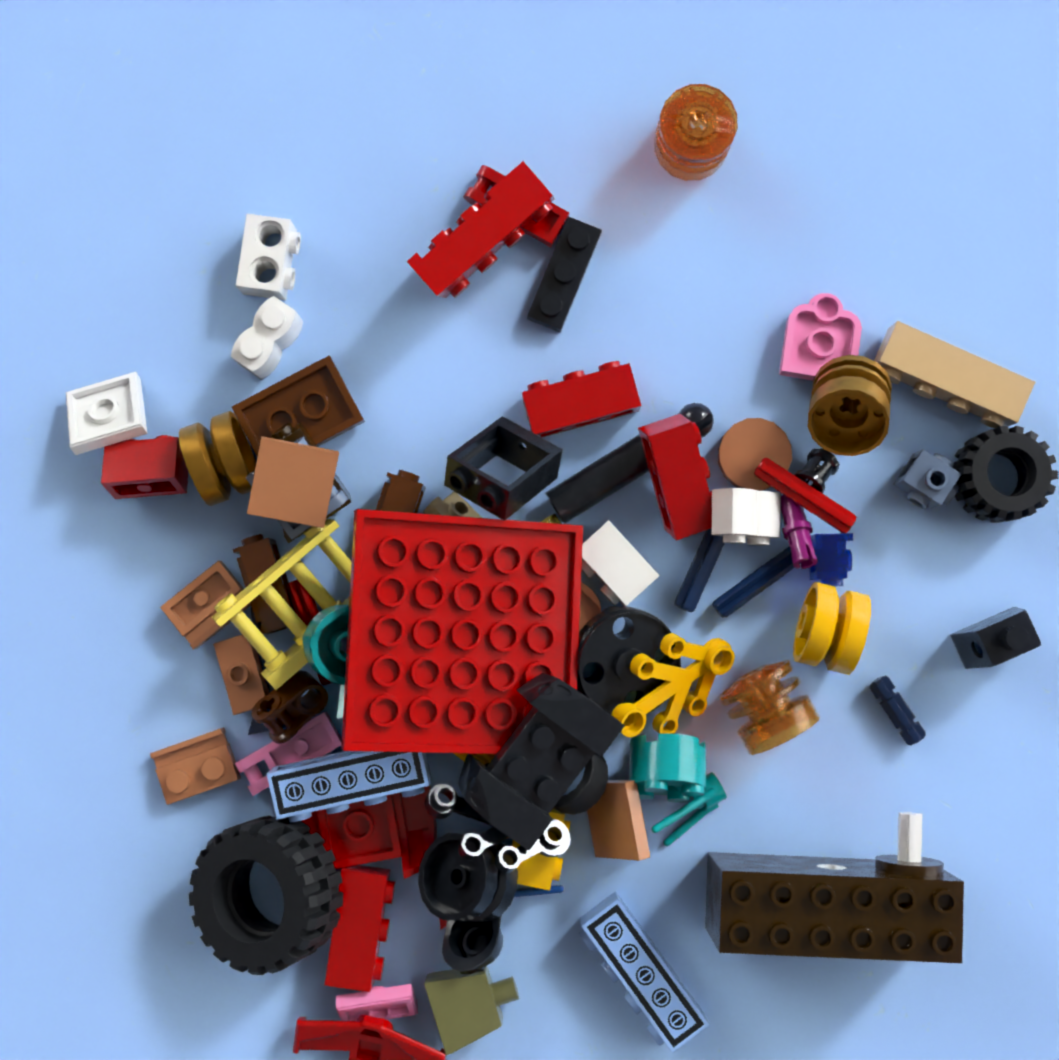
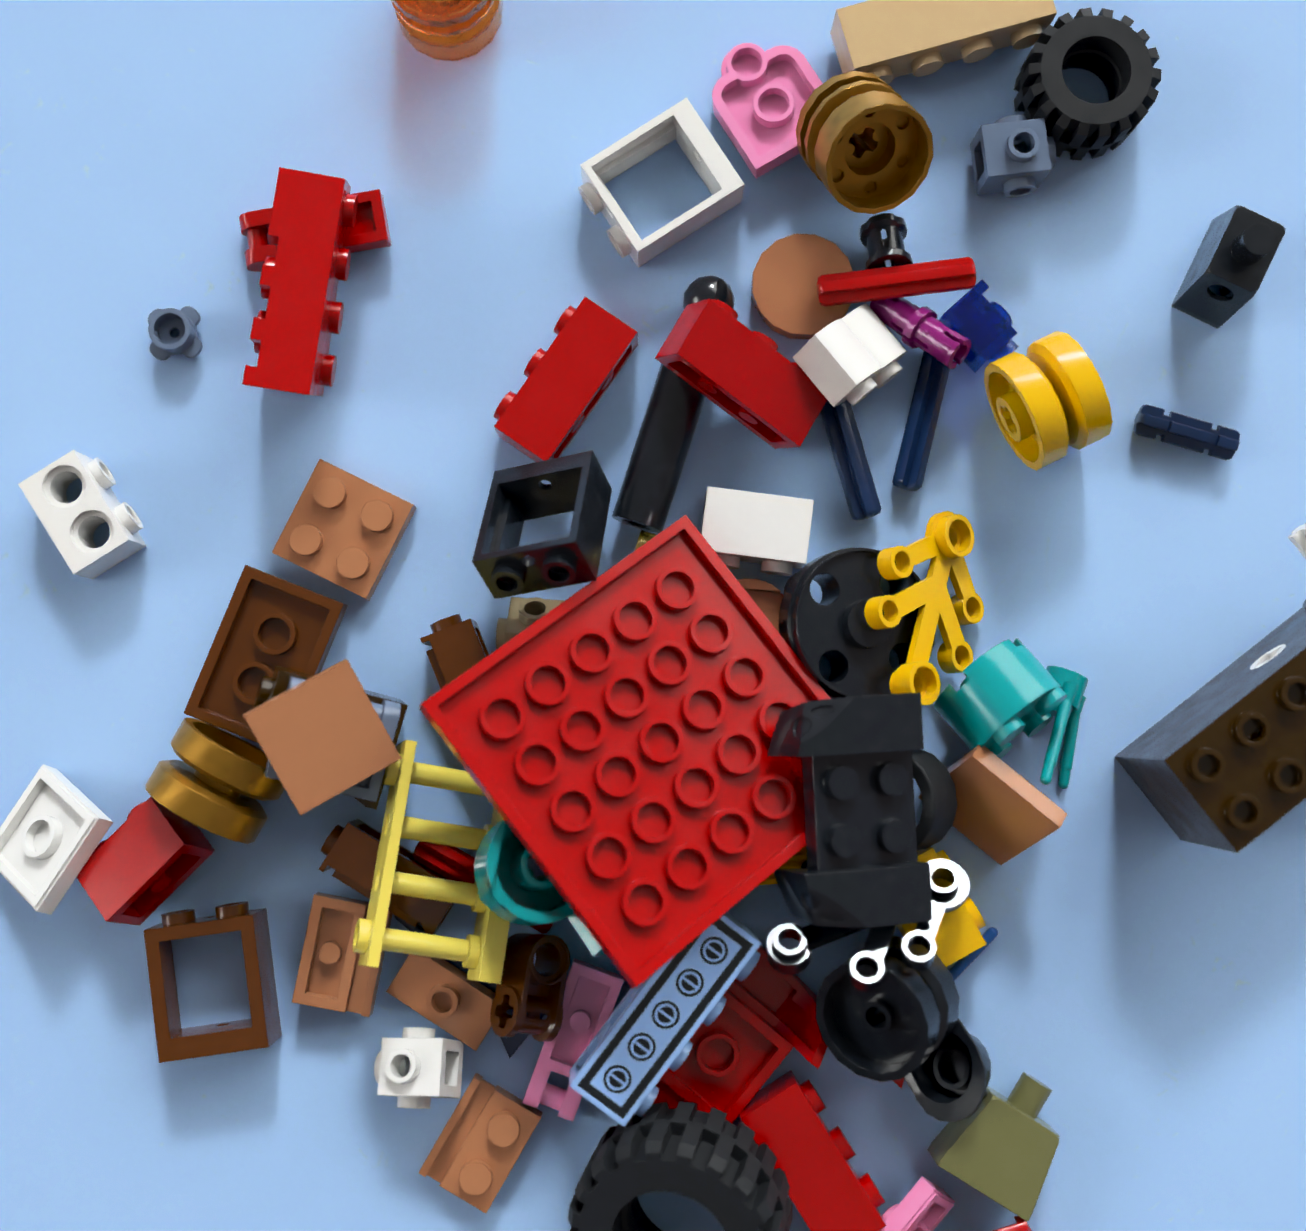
camera: 45 degrees left, 0 degrees up
(110, 596) = (219, 1038): none -> reddish brown window
(196, 698) = (419, 1068): none -> white brick
(272, 331) = (159, 589): white brick -> none
(391, 189) = (165, 320): none -> sand blue plate
(397, 379) = (344, 529): none -> nougat plate
(564, 274) = (431, 262): black plate -> none
(643, 972) = (1159, 945): light blue brick -> none
(761, 336) = (703, 152): none -> white window
(771, 711) = (1063, 547): clear orange wheel -> none

